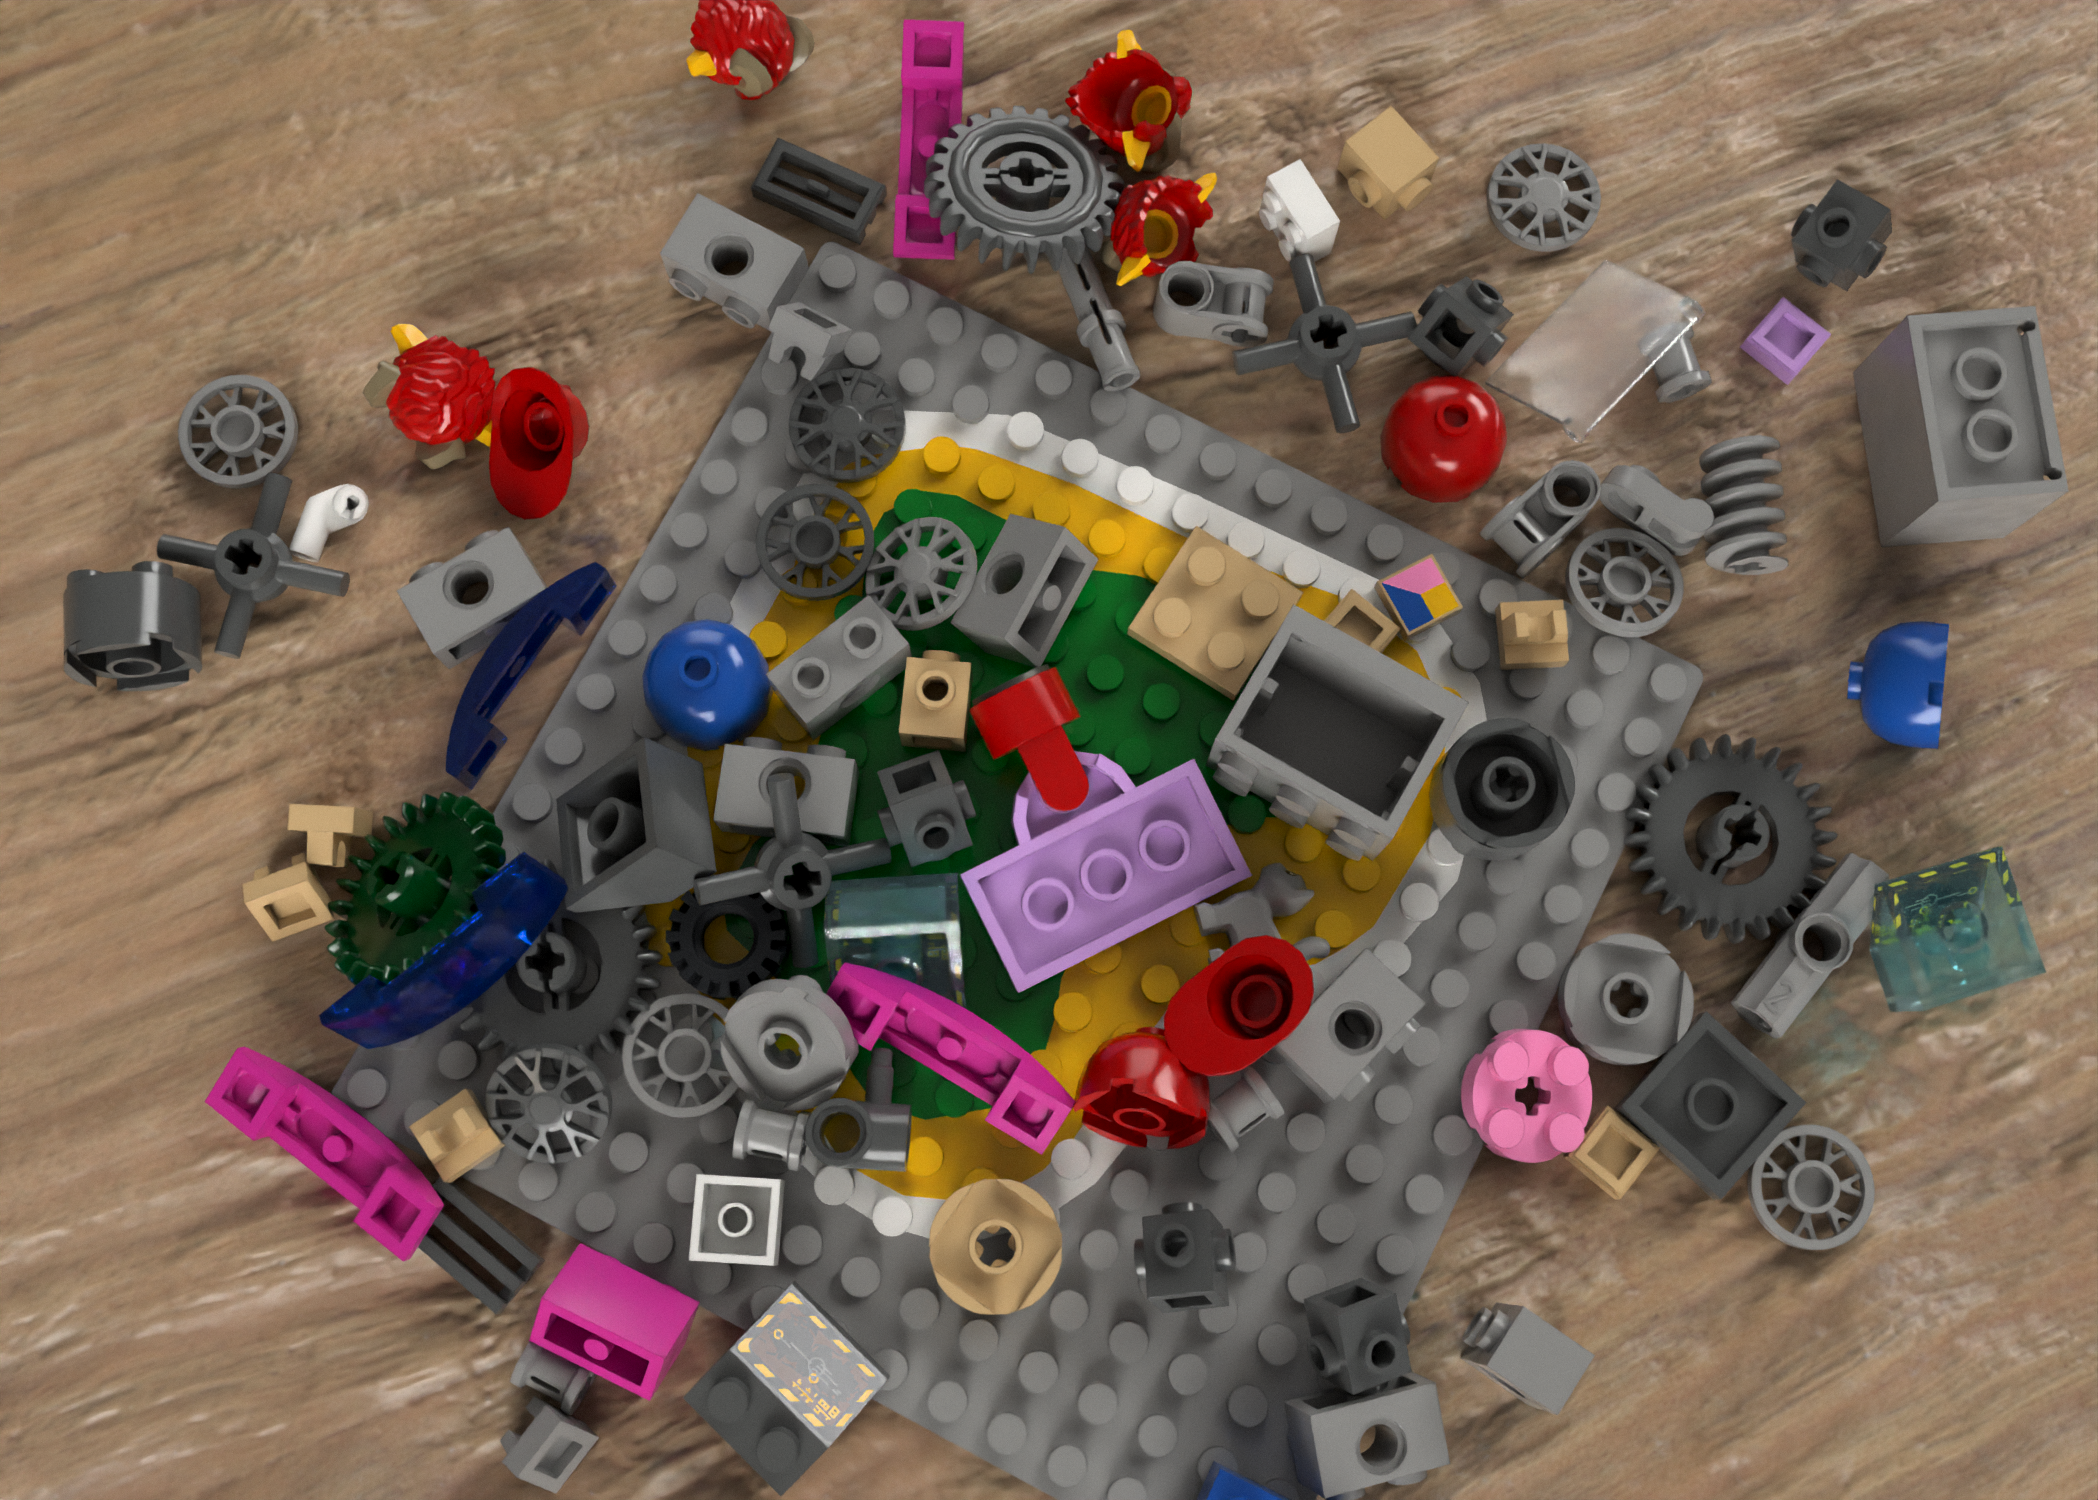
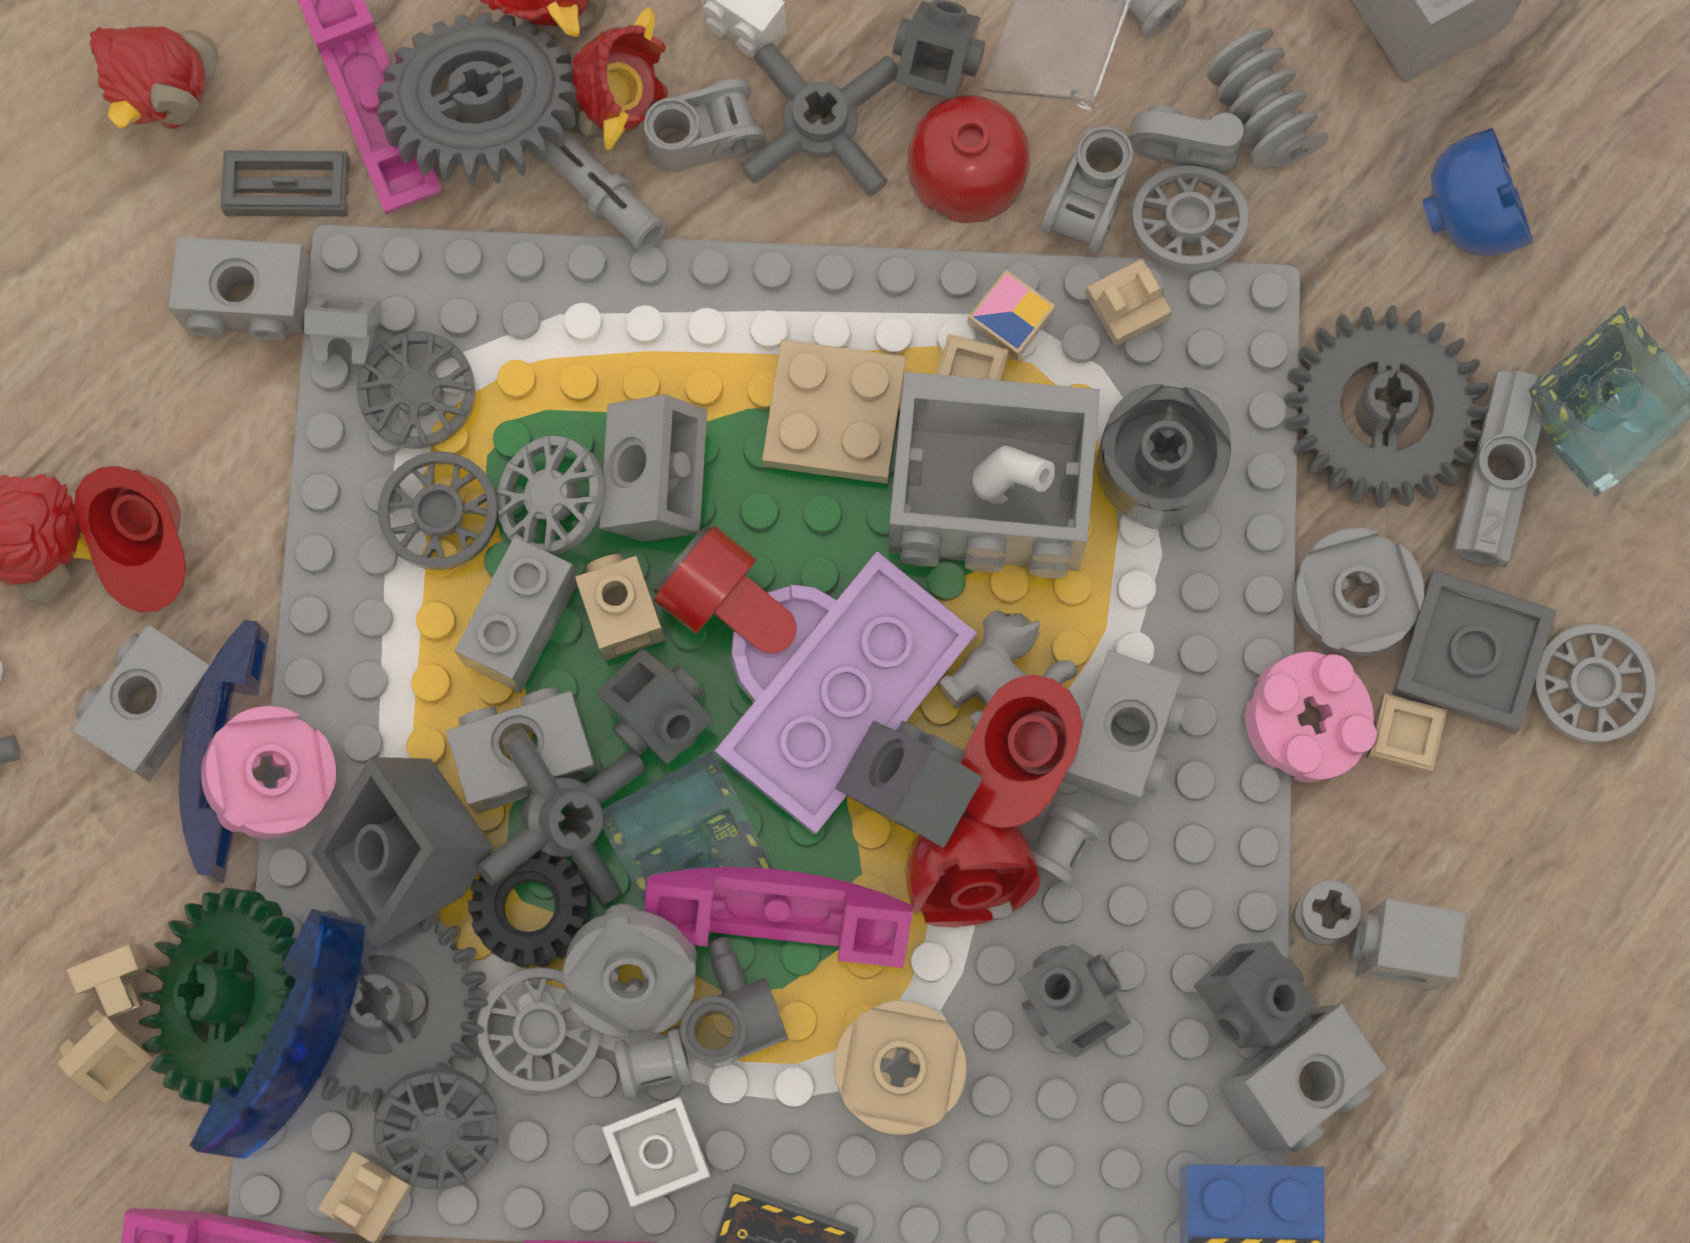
camera: 20 degrees left, 0 degrees up
(518, 728) = (246, 803): none -> bright pink plate
(706, 684) = (400, 686): blue cylinder -> none
(1126, 986) = (911, 779): none -> dark grey brick
(1346, 736) = (1008, 467): none -> white arm
(1480, 1283) = (1344, 903): none -> light grey bush

